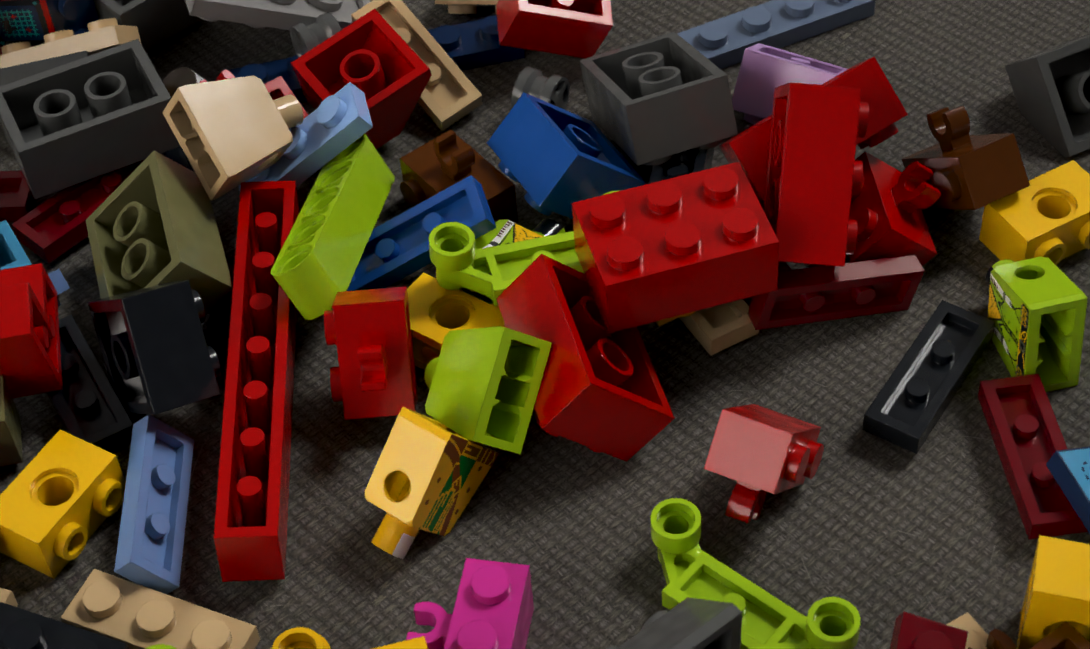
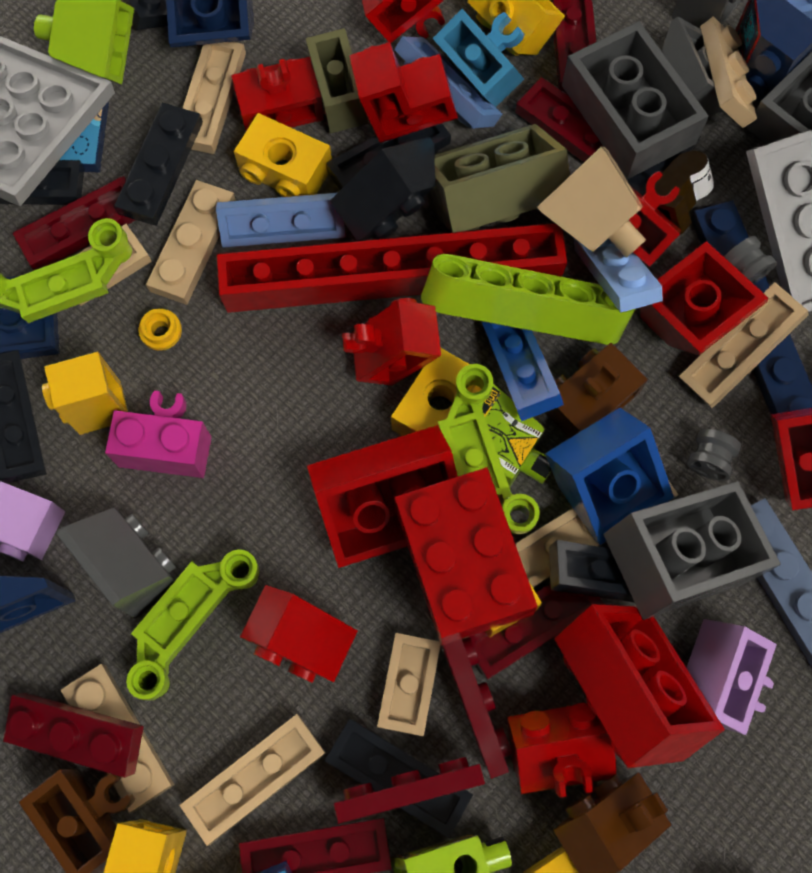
camera: 85 degrees right, 25 degrees up
(423, 480) = (274, 378): yellow torso -> none
(487, 384) = (347, 422): lime torso -> none
(814, 171) = (545, 674): red brick -> none
(816, 365) = (409, 684): none -> tan plate
(949, 521) = (252, 779): none -> tan plate
(950, 340) = (408, 789): none -> dark red plate

